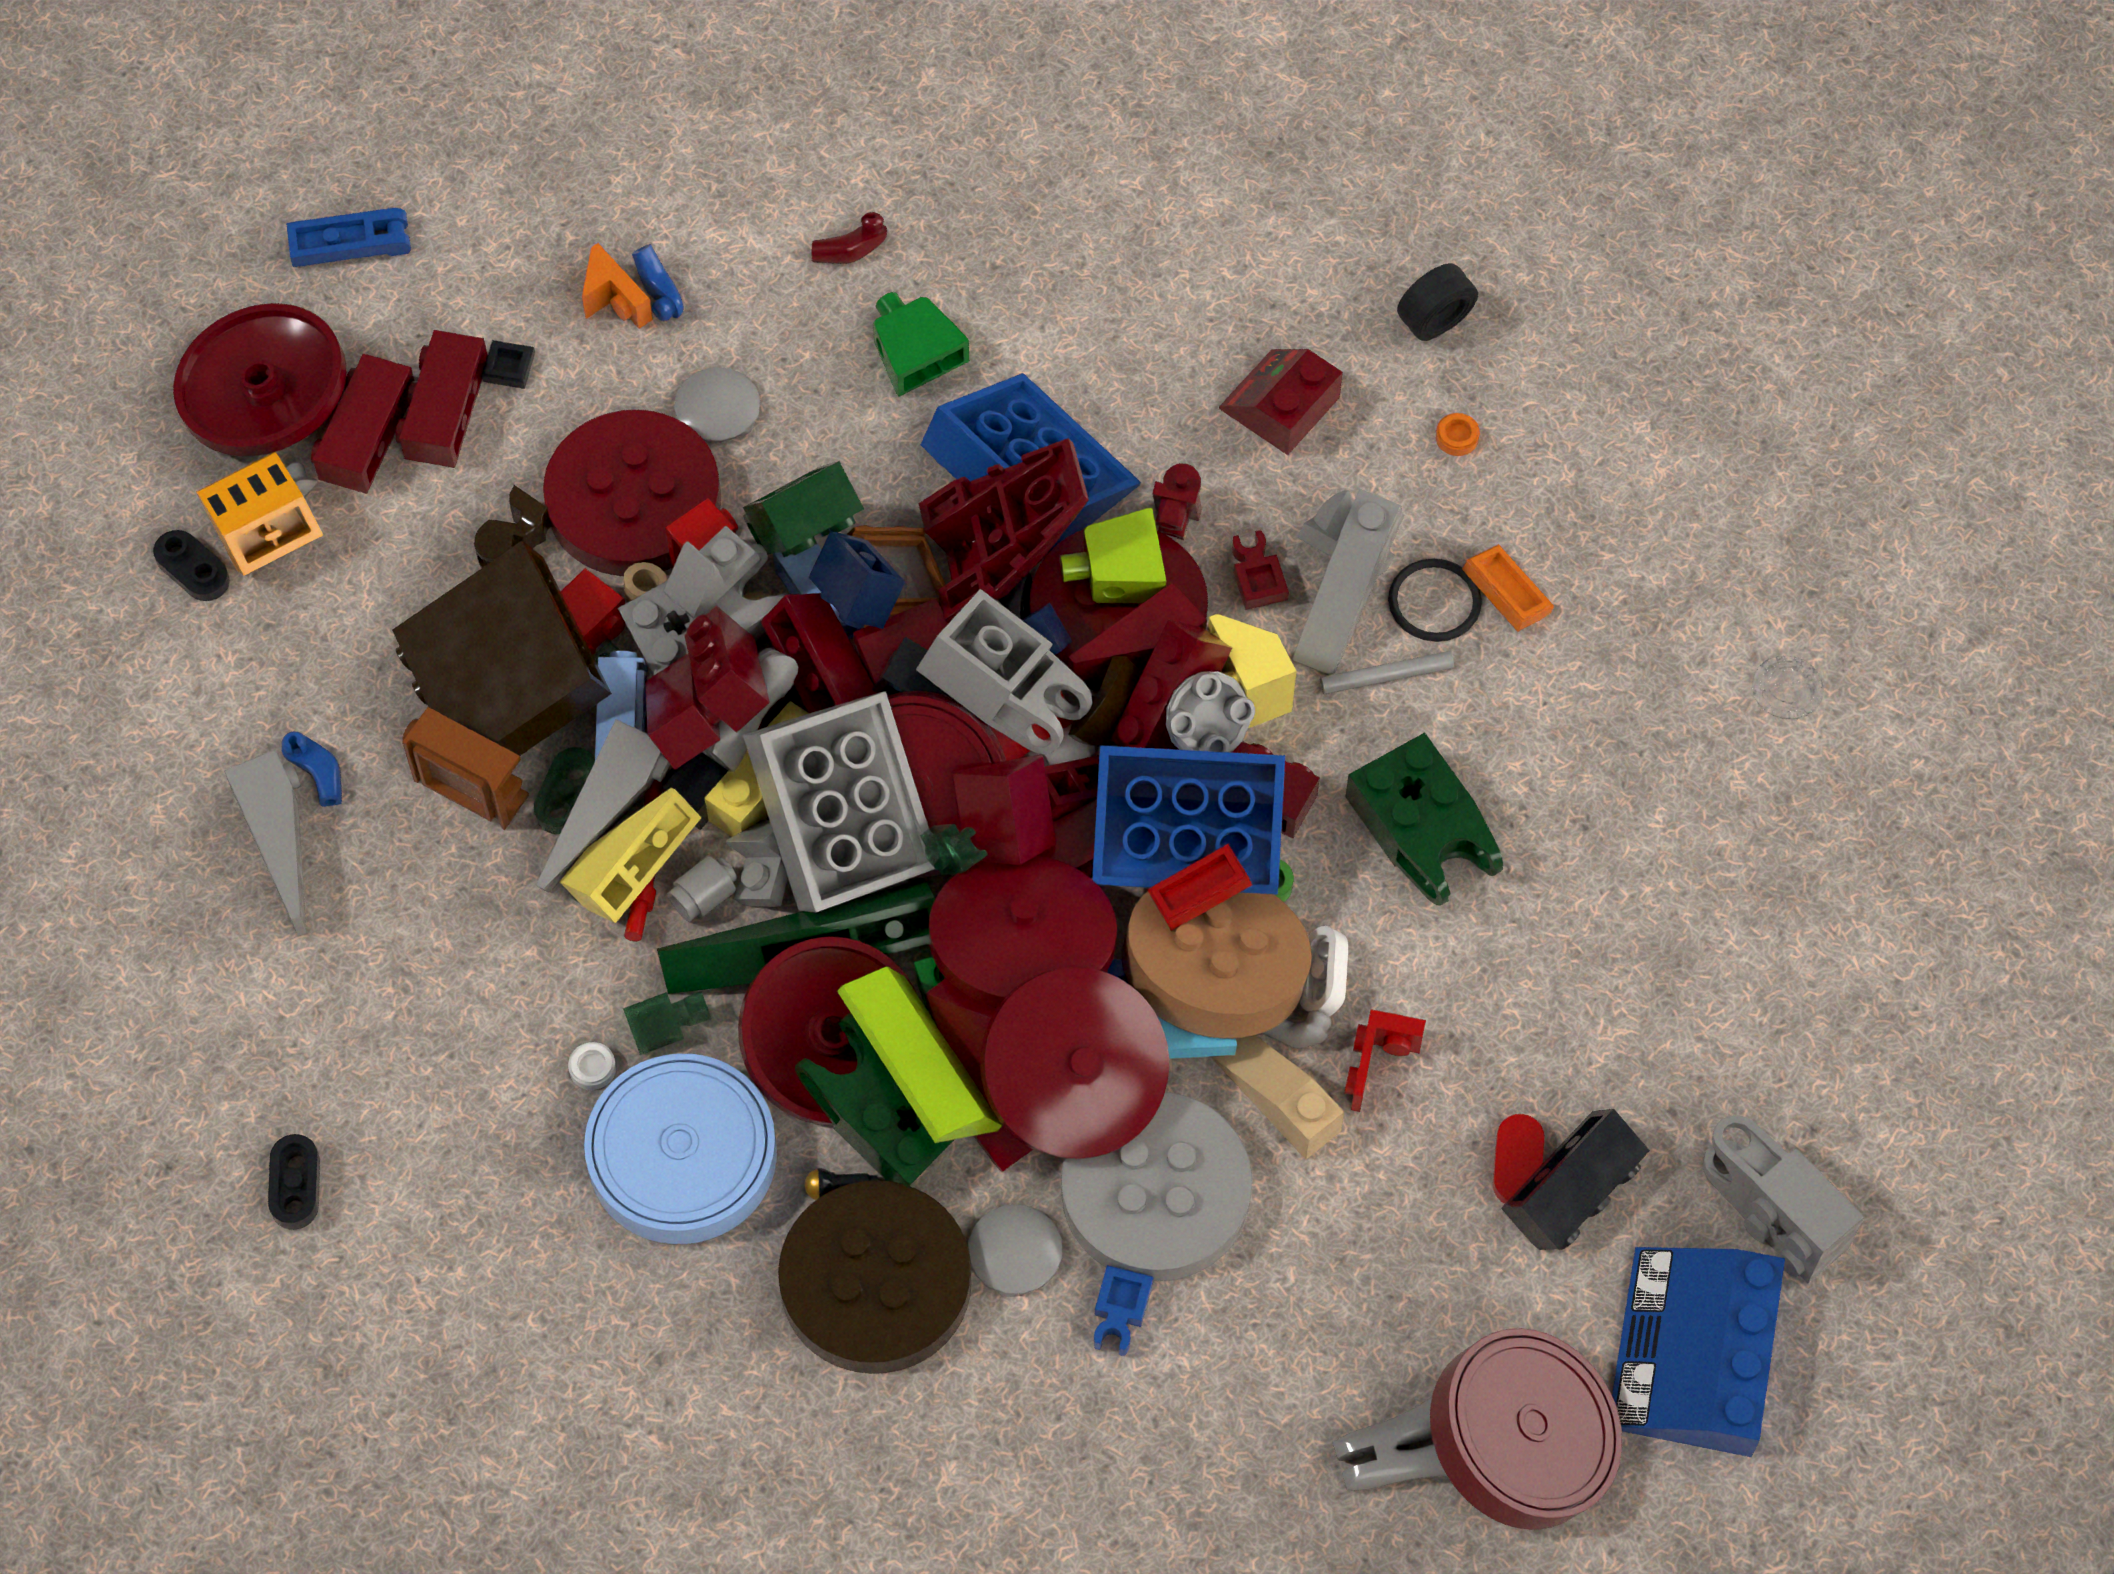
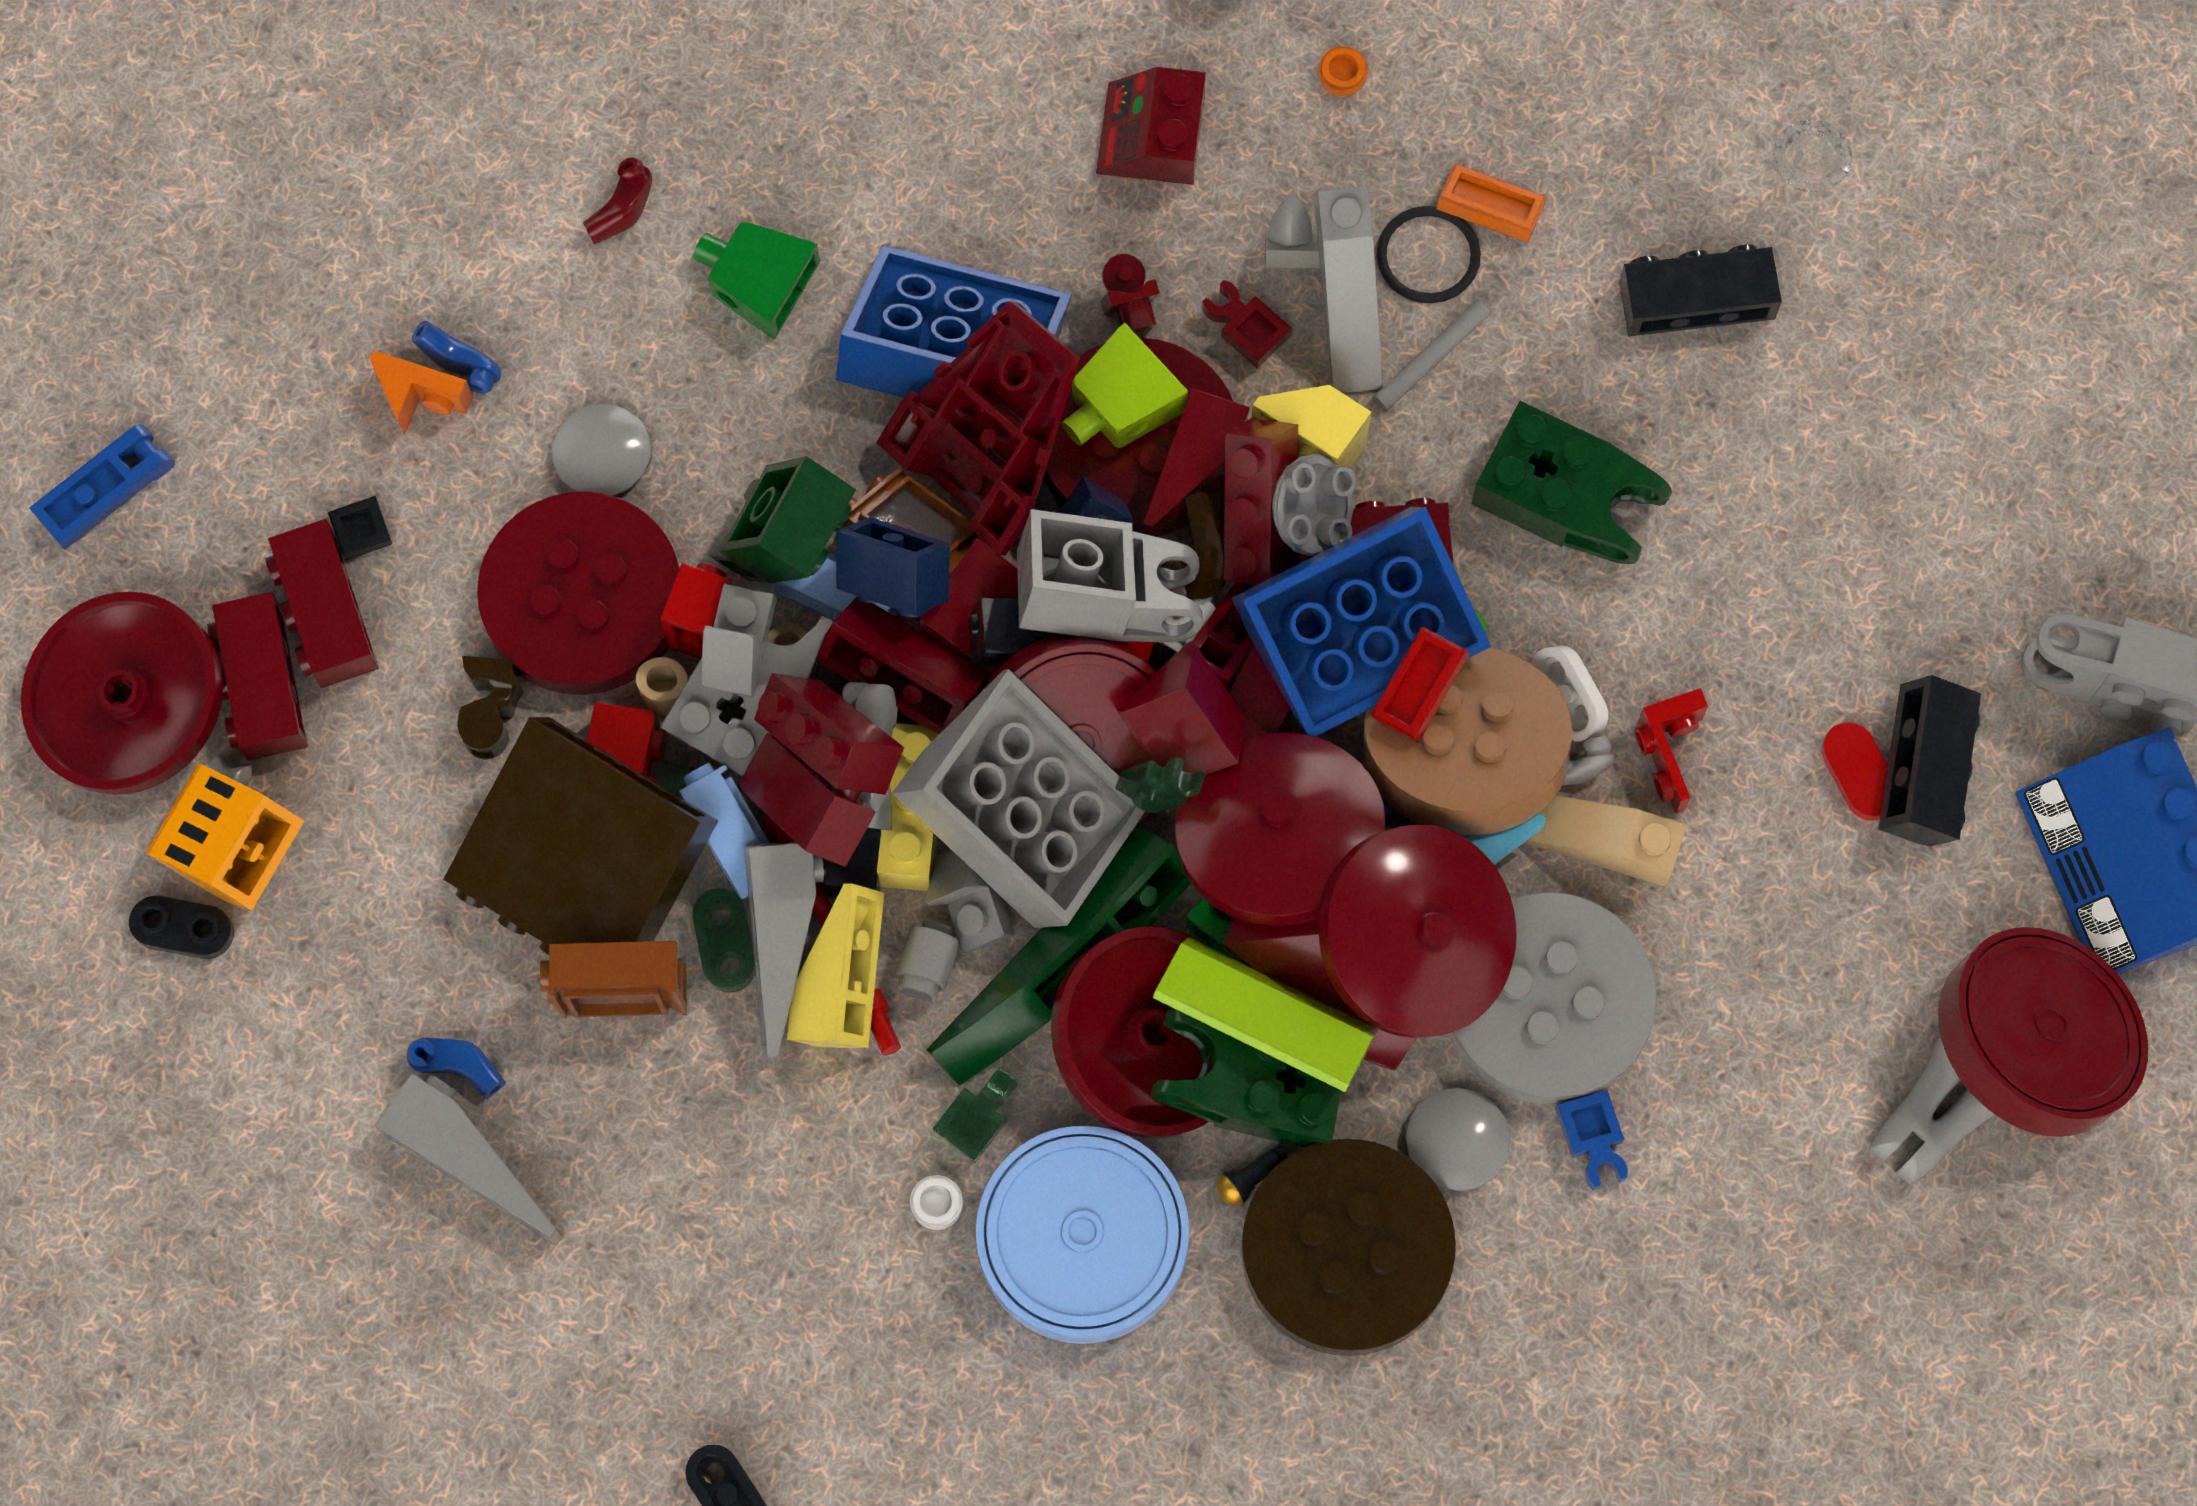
camera: 30 degrees left, 10 degrees up
(1627, 735) = (1699, 290): none -> black brick

